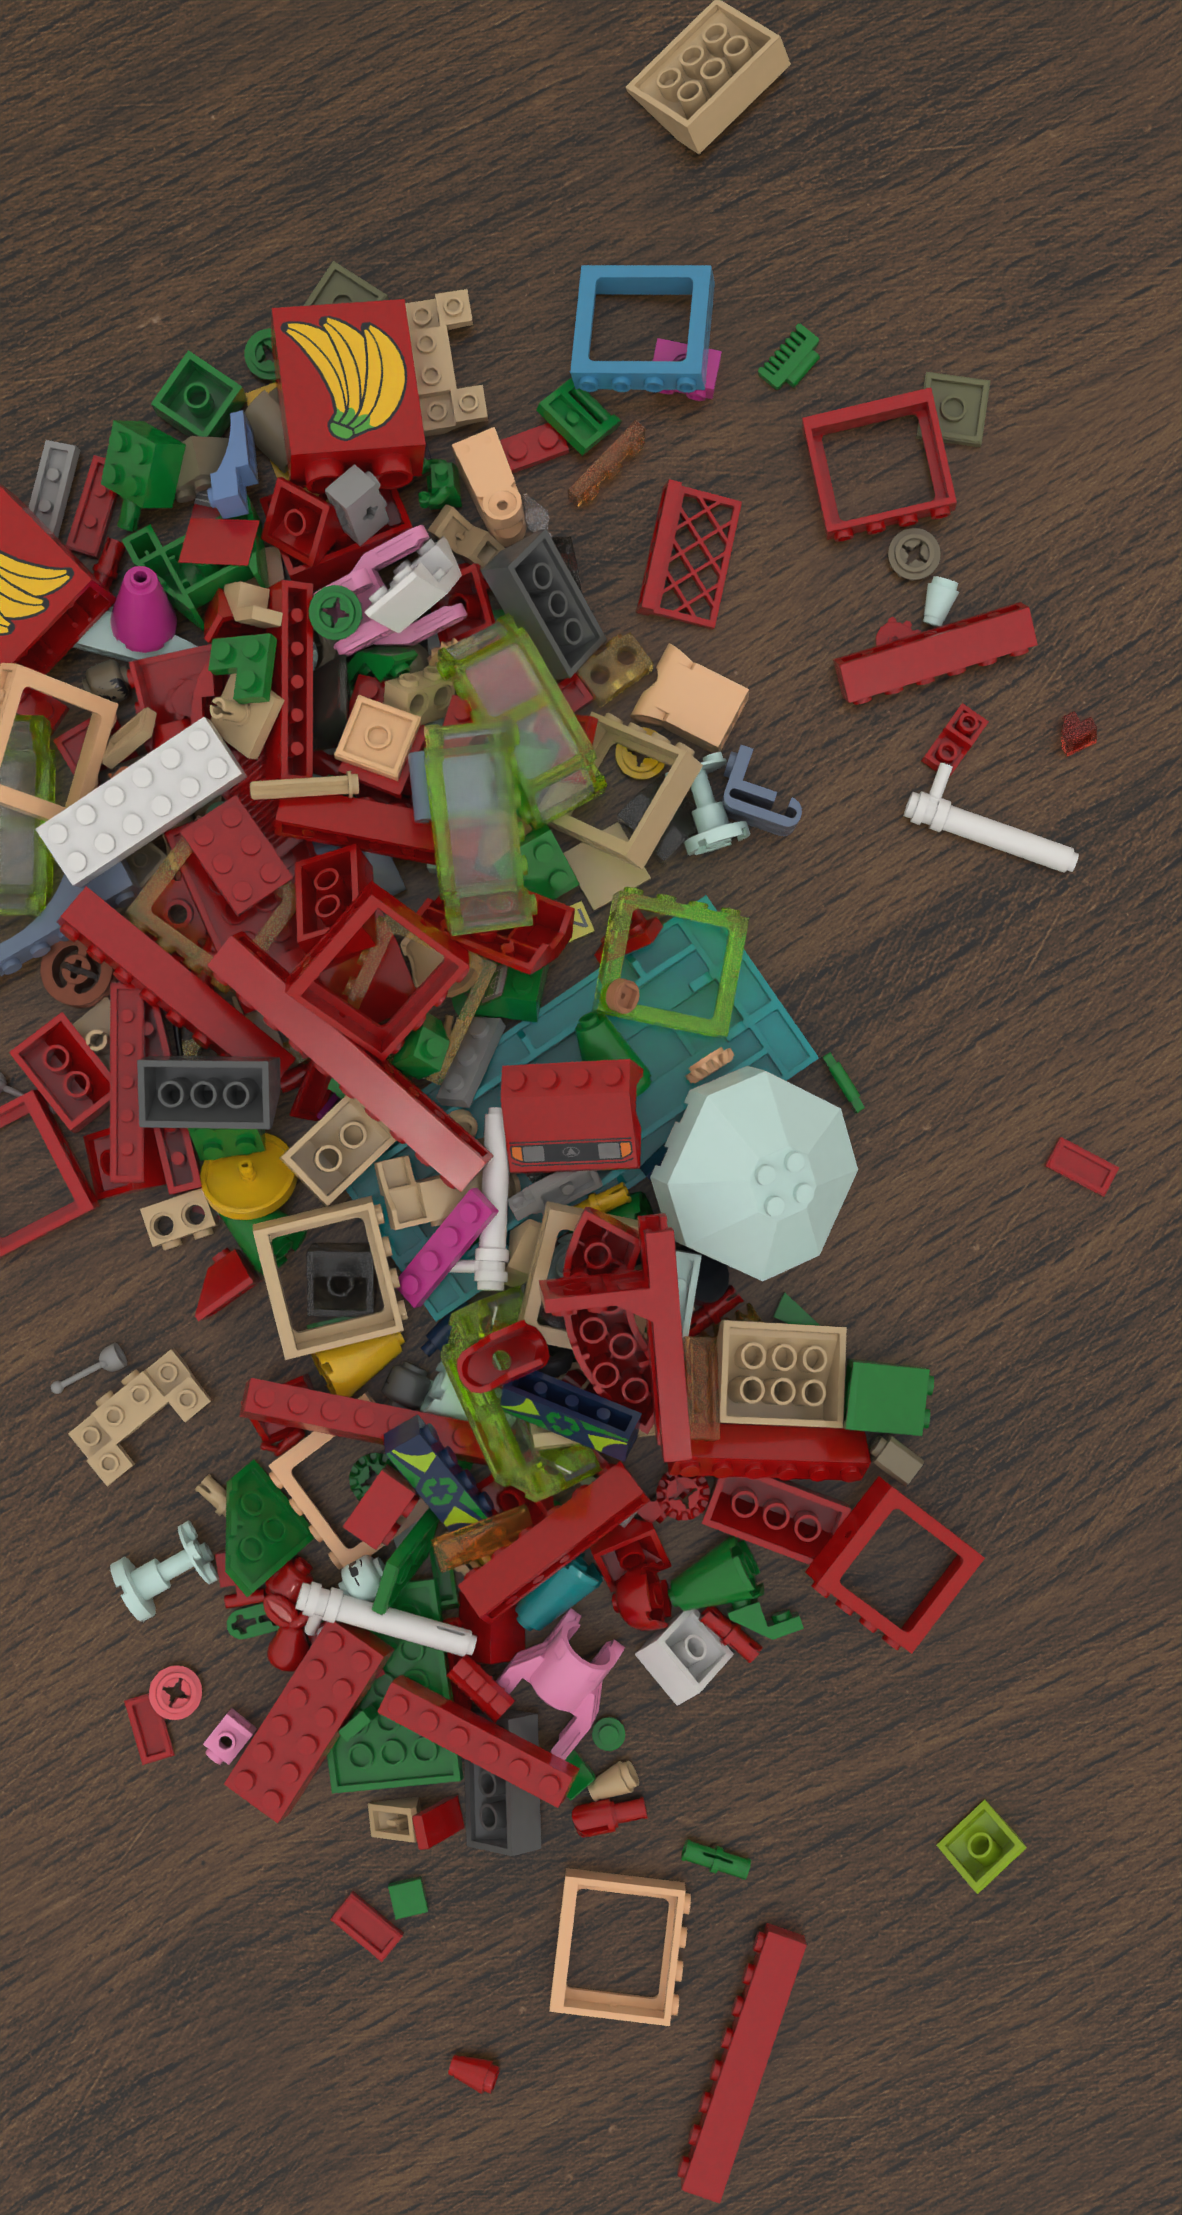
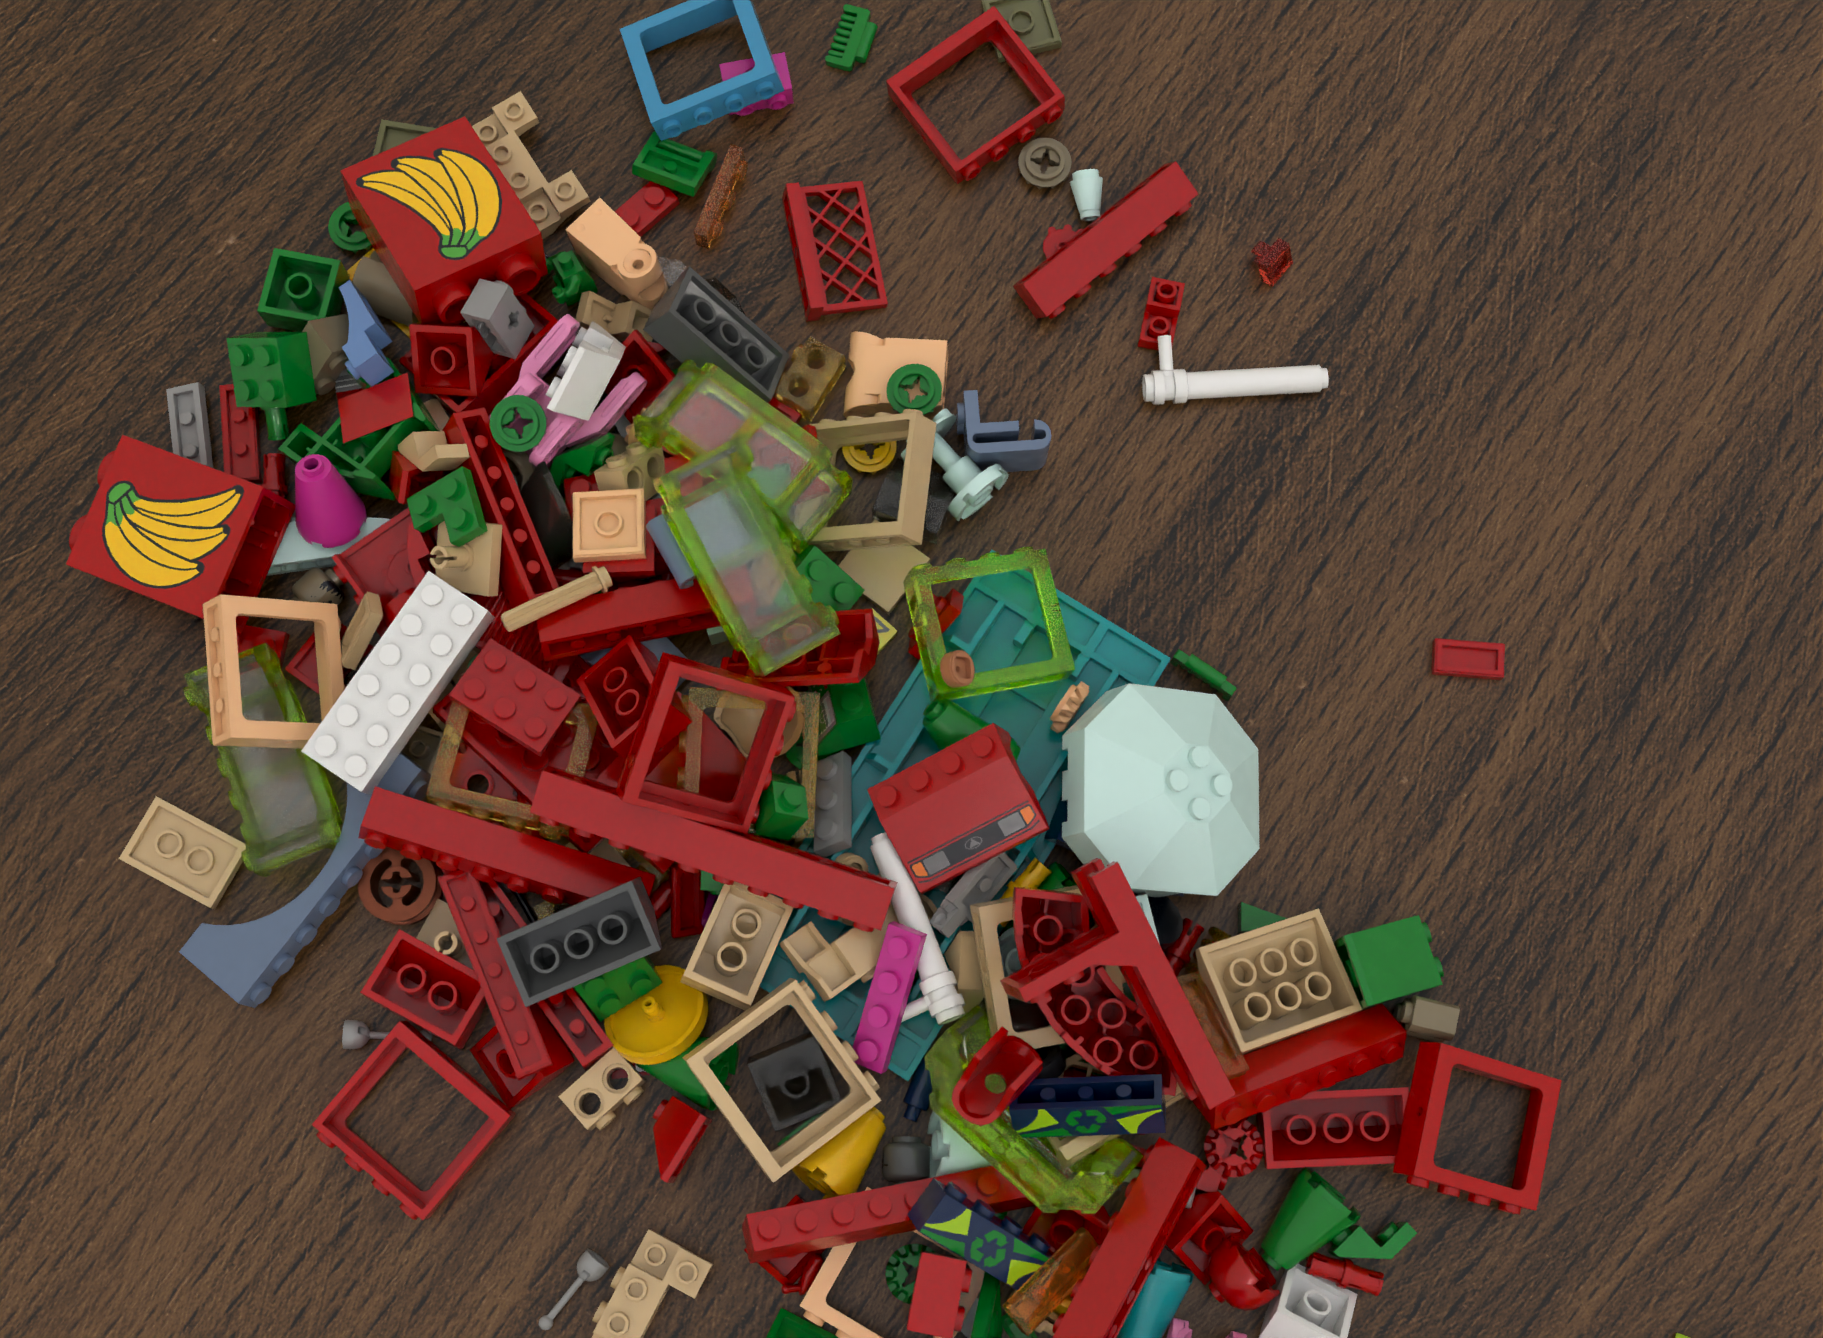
camera: 30 degrees left, 10 degrees down
(698, 709) = (906, 378): none -> green gear

